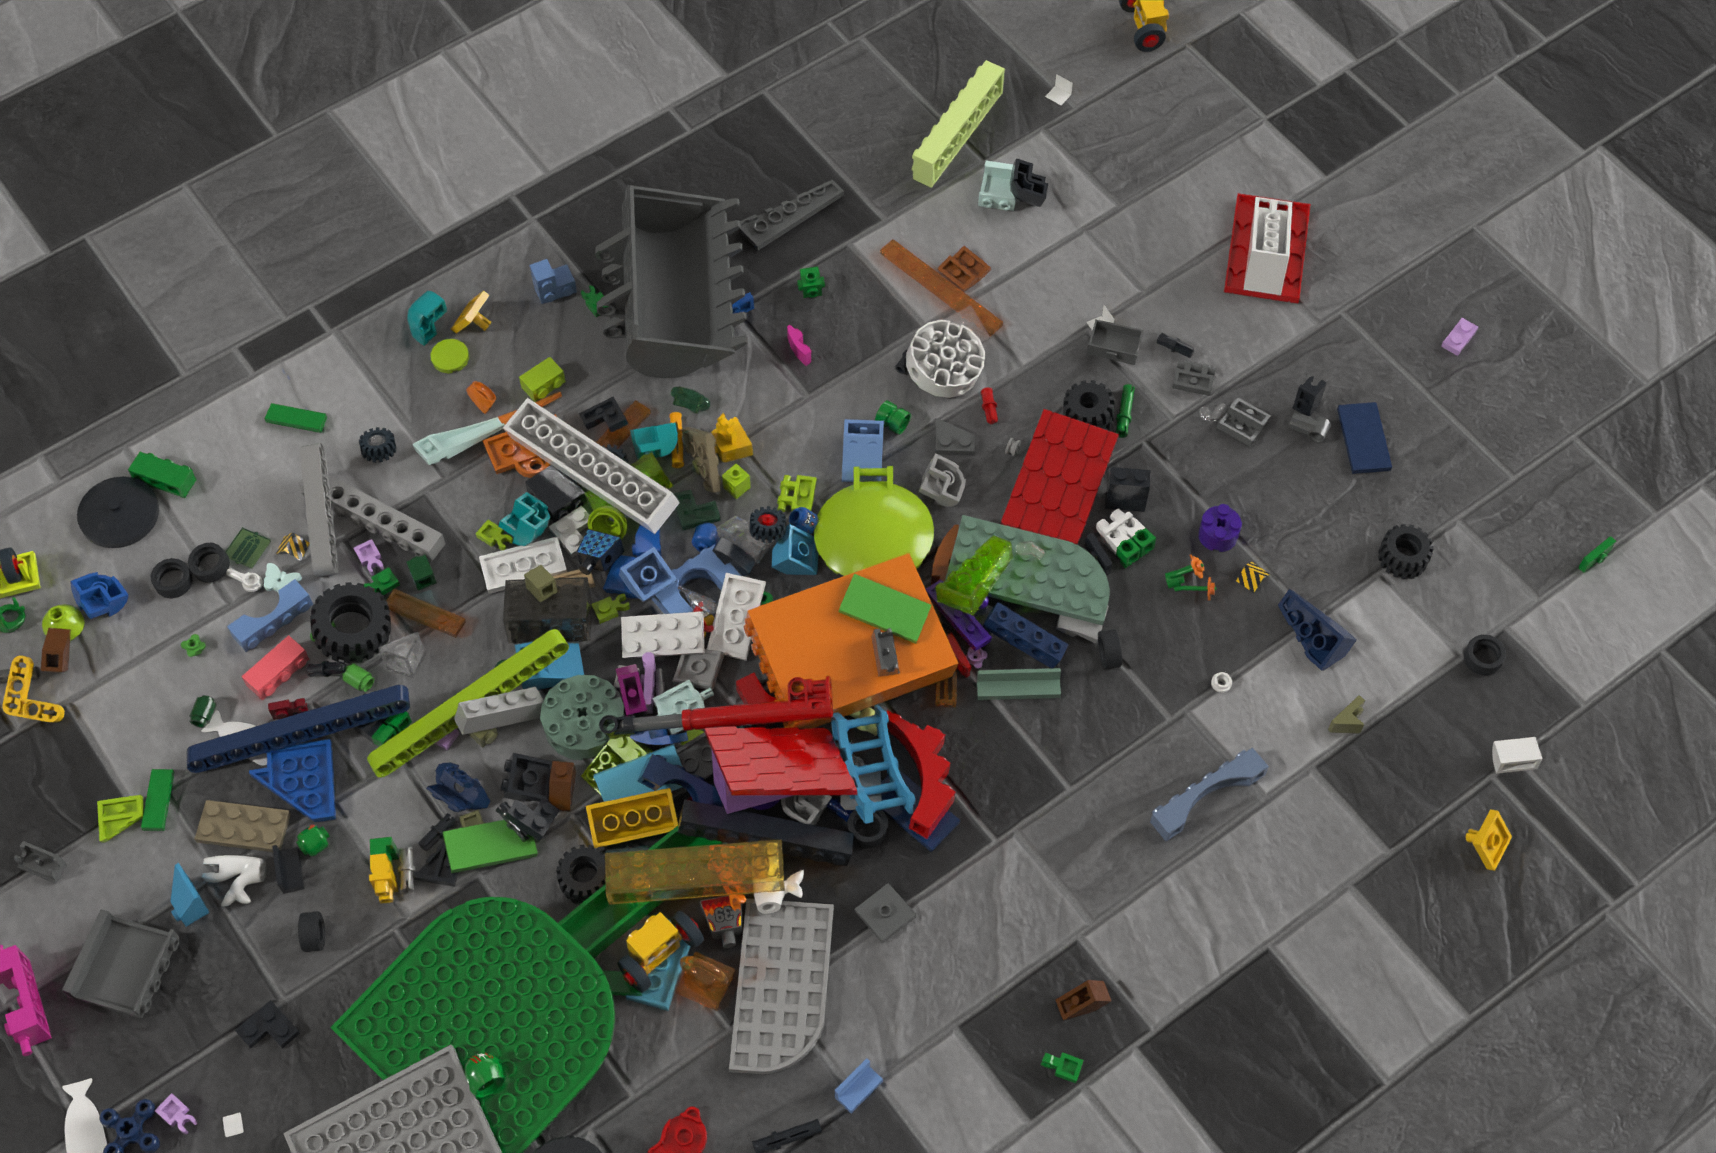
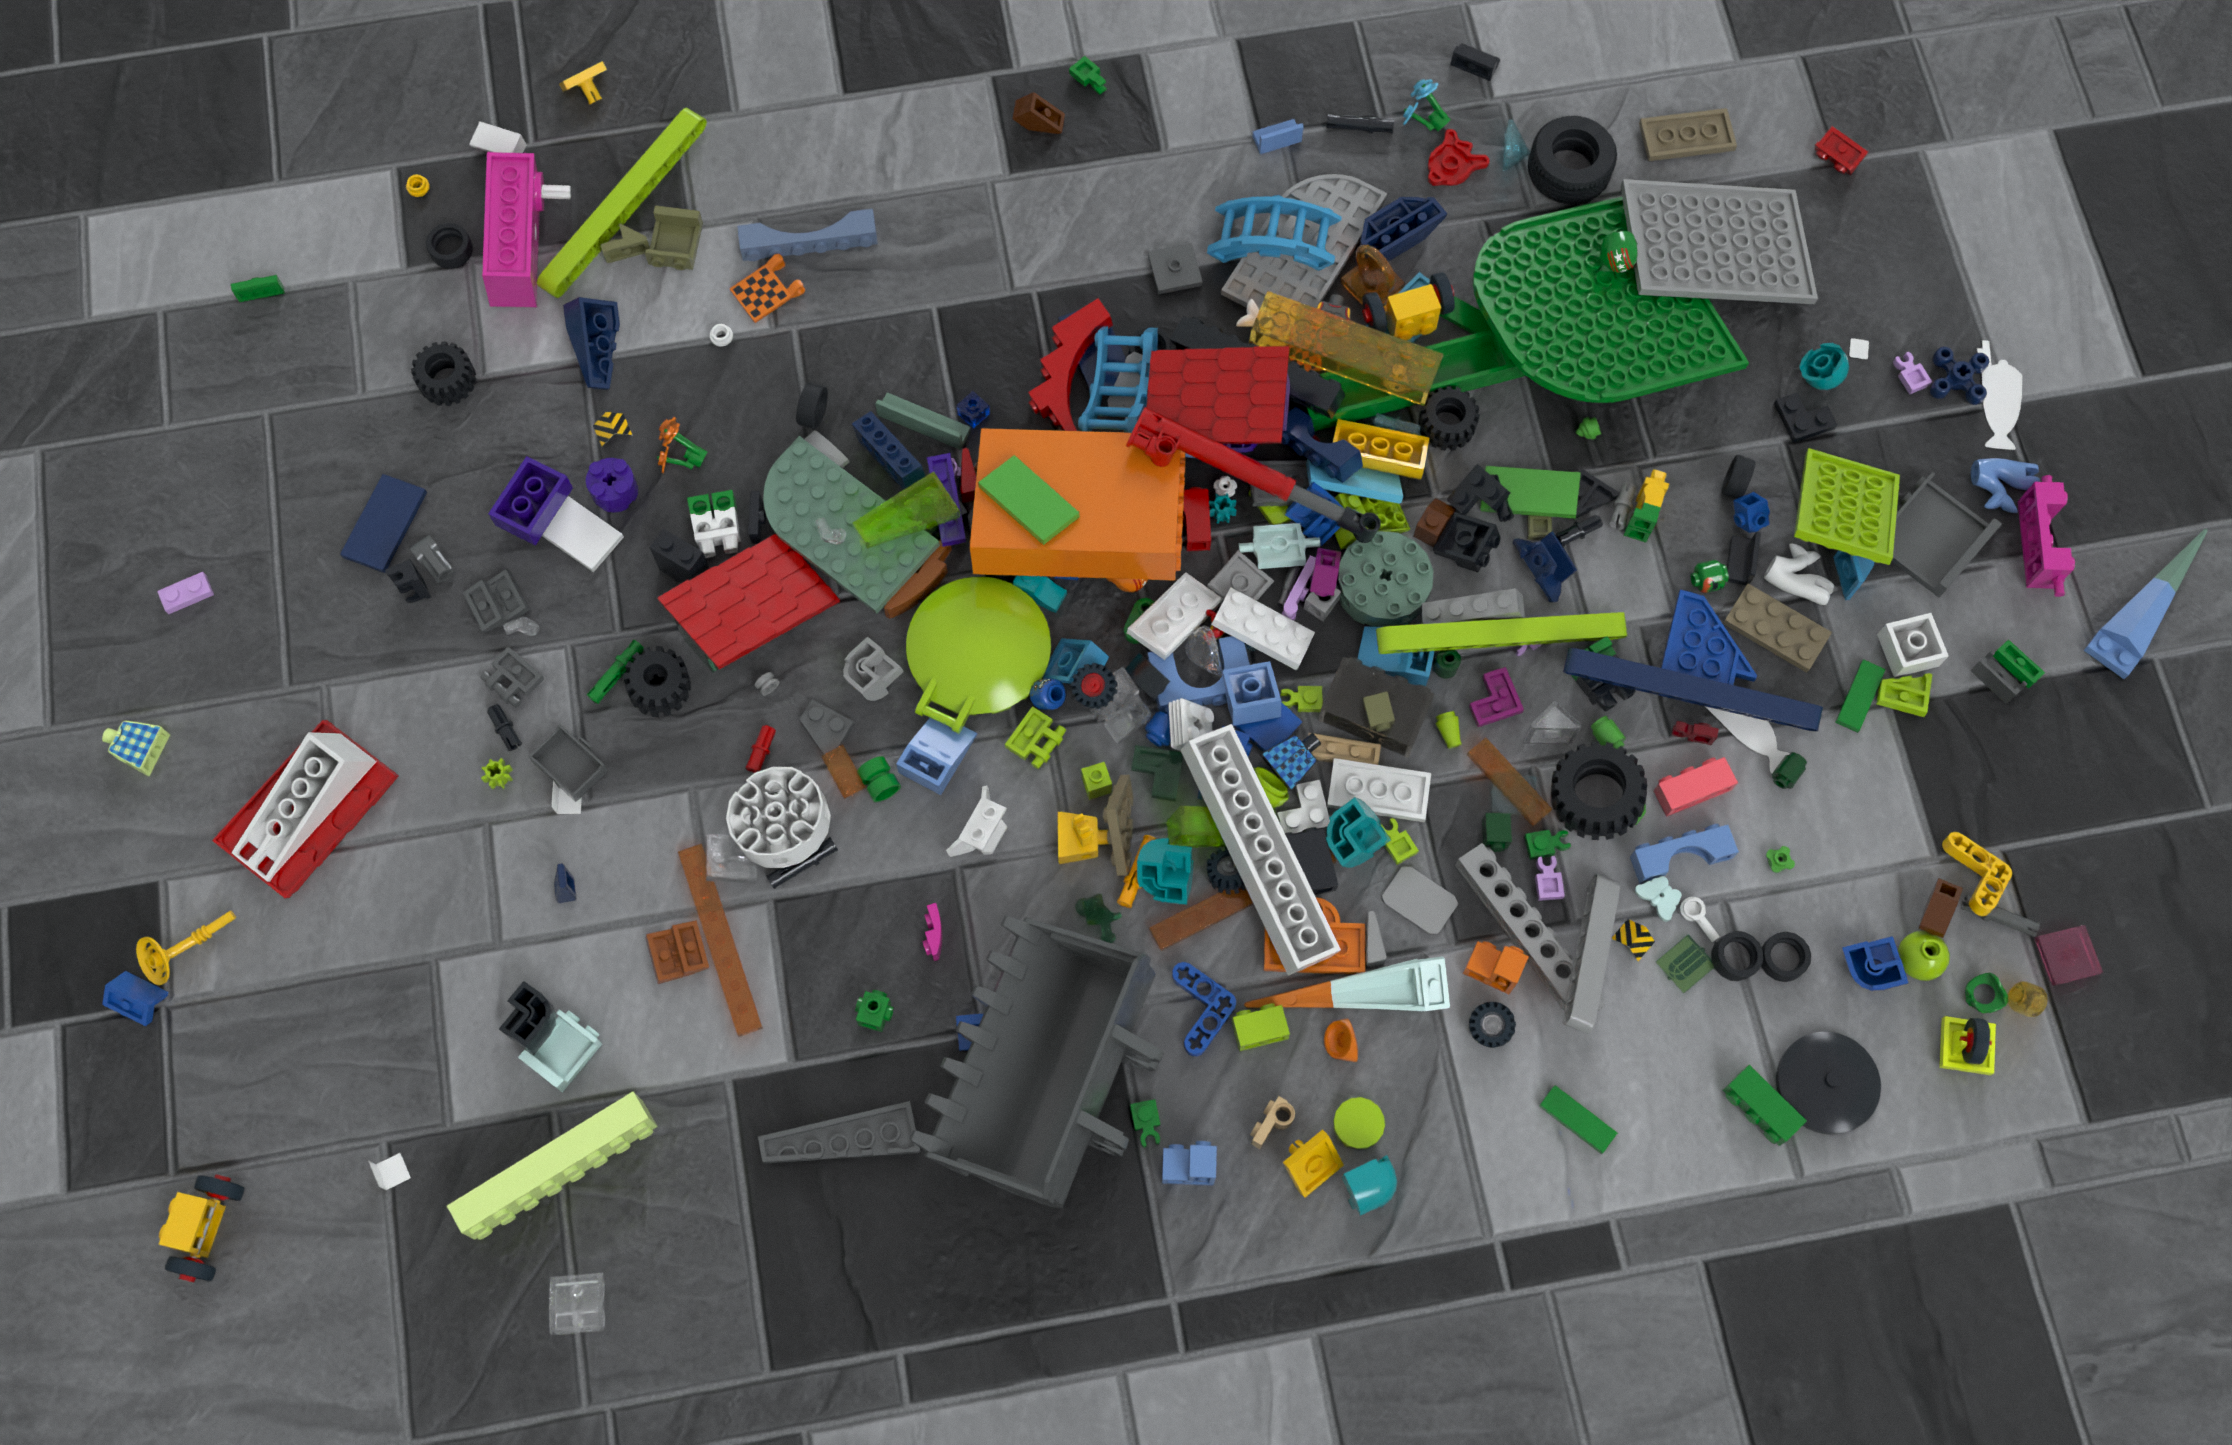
camera: 155 degrees left, 10 degrees up
(25, 879) = (2018, 663): none -> green plate
(63, 1054) = (2016, 474): none -> medium blue piece
(121, 850) = (1912, 645): none -> white brick
(205, 934) = (1848, 506): none -> lime plate
(260, 1071) = (1825, 366): none -> teal cylinder
(297, 906) = (1751, 512): none -> blue brick
(326, 668) = (1646, 760): black axle -> none
(385, 479) = (1496, 967): none -> orange brick
(452, 667) = (1502, 700): none -> magenta plate
(462, 509) = (1419, 900): none -> light grey piece
(482, 460) = (1374, 948): none -> light grey slope
(487, 631) = (1449, 728): none -> lime cone
(507, 333) = (1262, 1130): none -> tan plate
(584, 383) = (1210, 1000): none -> blue beam
(607, 412) = (1201, 941): black plate -> none
(683, 539) = (1188, 722): none -> white brick
(703, 1031) = (1402, 225): none -> dark blue wedge
(799, 414) = (983, 828): none -> white piece
(807, 946) = (1270, 245): none -> dark azure fence
(885, 652) = (1054, 455): dark grey hinge -> none
(899, 75) = (576, 1304): none -> clear slope
(924, 416) = (843, 771): none -> clear orange tile
(985, 715) = (970, 414): none -> clear blue plate
(1062, 268) = (564, 885): none -> dark blue slope
(1157, 315) = (495, 767): none -> lime gear
(1214, 734) = (763, 291): none -> orange flag
(1240, 493) = (582, 534): none -> white tile
(1266, 483) = (530, 500): none -> dark purple brick
(1274, 154) = (149, 959): none -> yellow dish
(1285, 111) = (133, 997): none -> blue panel
(1313, 741) = (674, 238): none -> olive panel
(1378, 756) = (621, 203): none -> lime beam
(1406, 233) = (137, 744): none -> torso
(1438, 671) = (511, 227): none -> dark pink piece
(1551, 688) = (413, 182): none -> yellow plate

